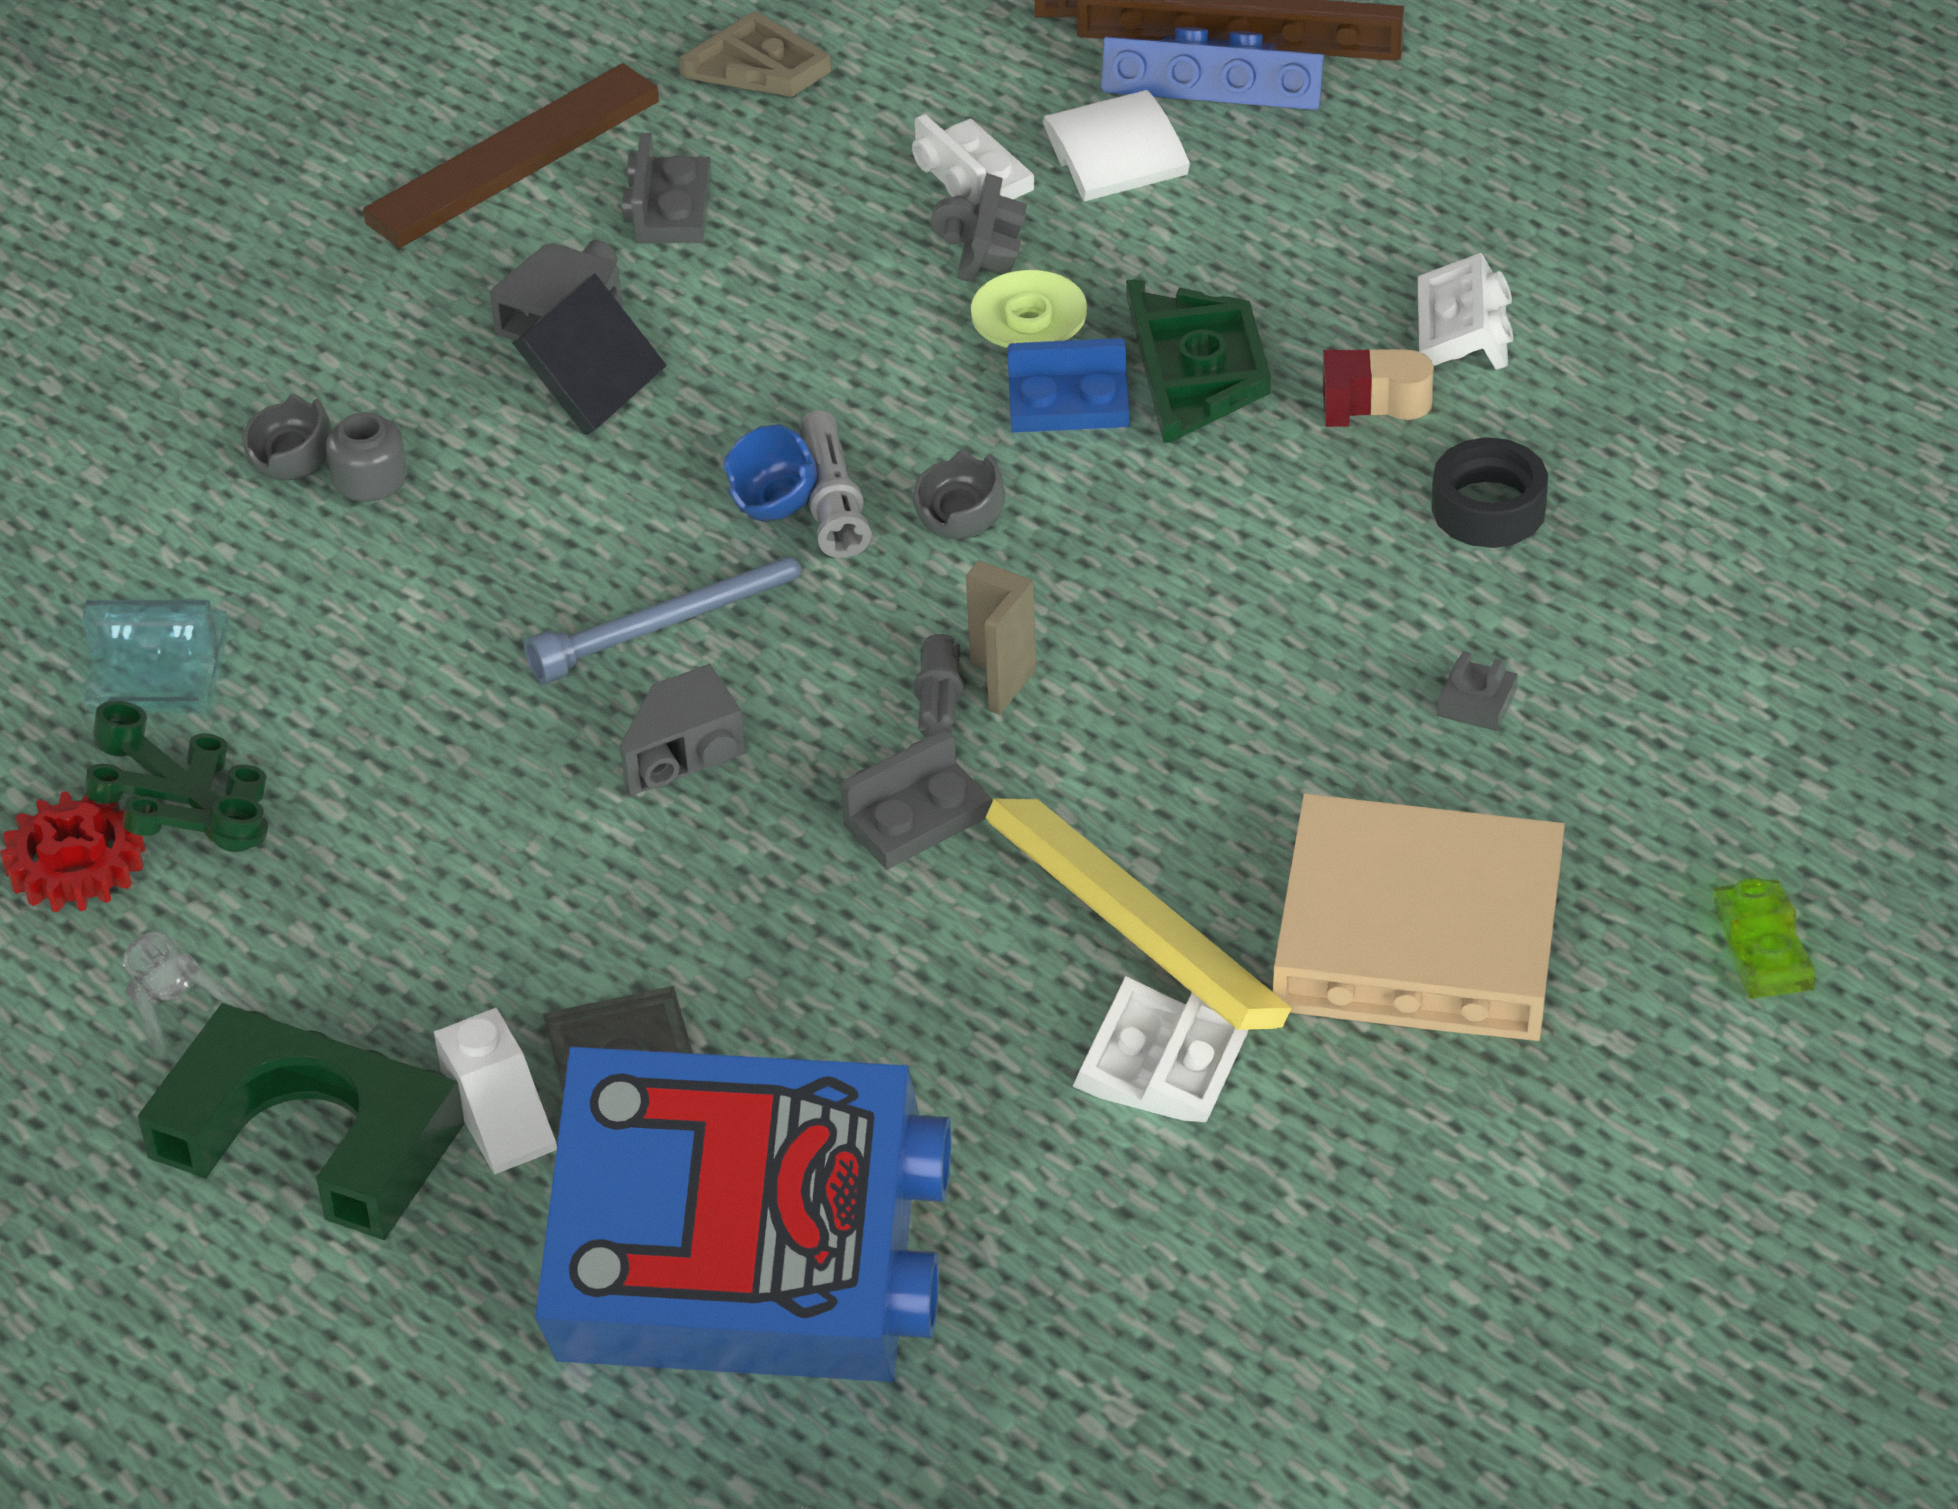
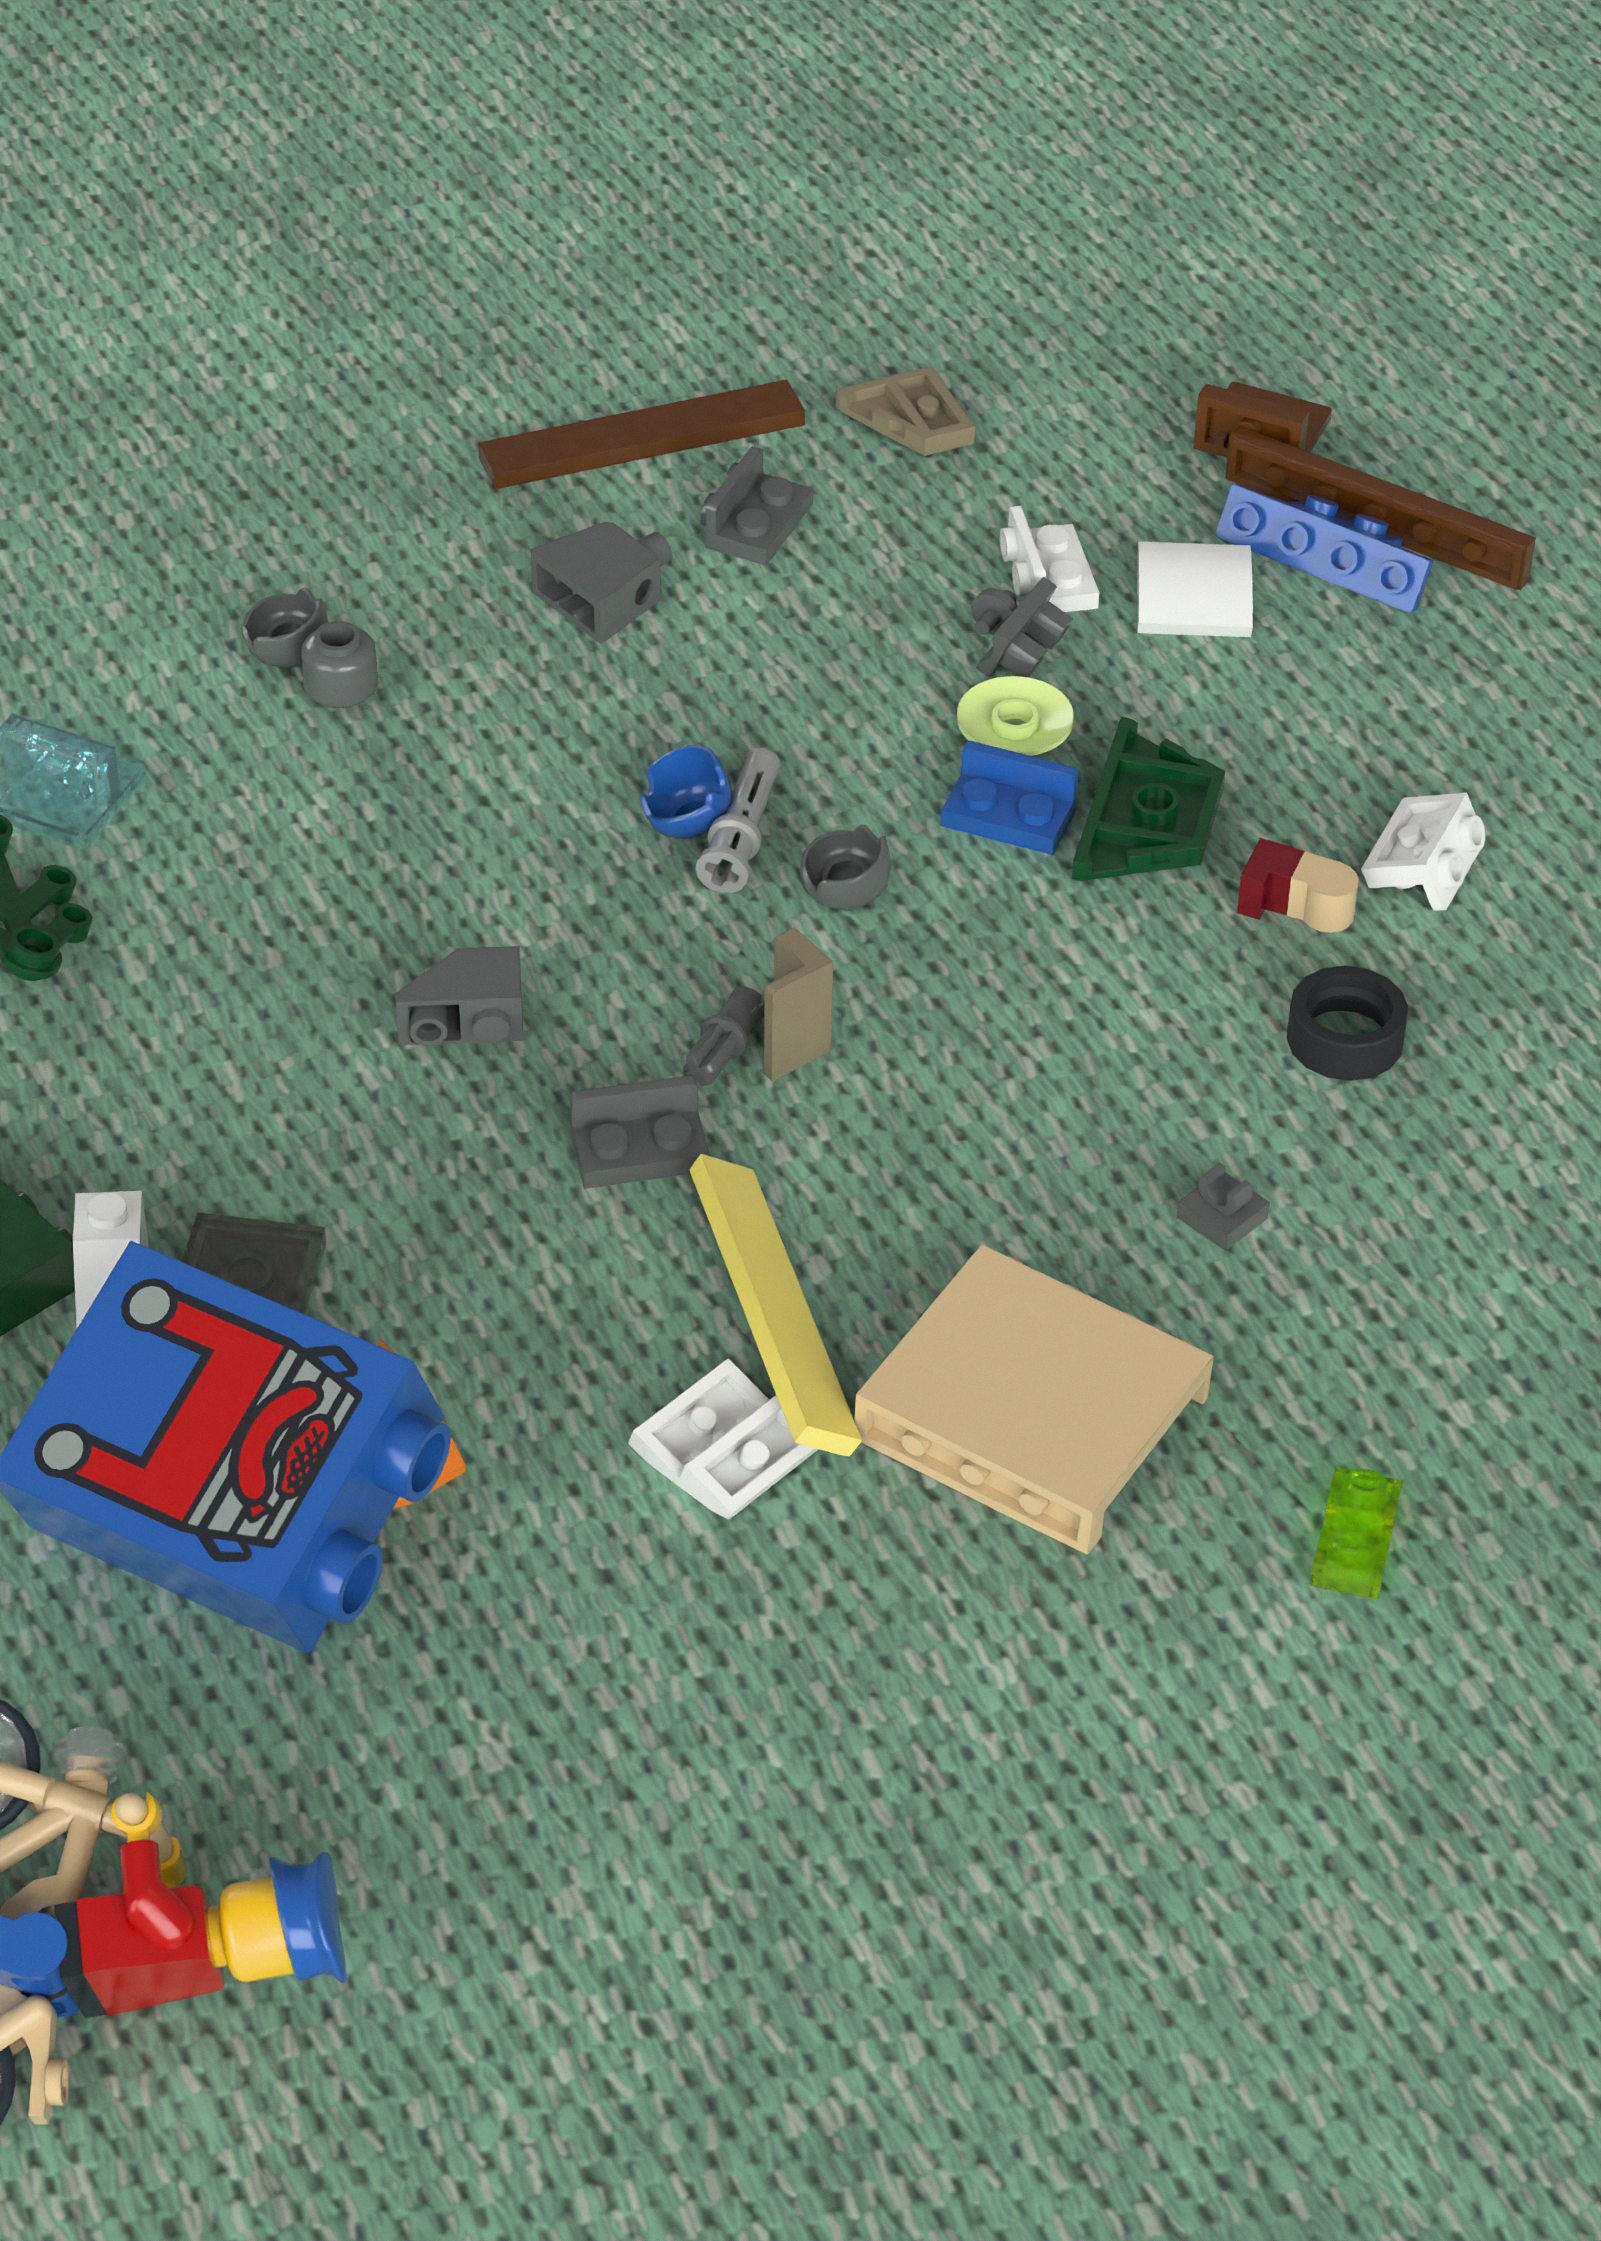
camera: 20 degrees right, 0 degrees up
(553, 654) = (406, 894): sand blue piece -> none
(589, 354) = (587, 633): black tile -> none

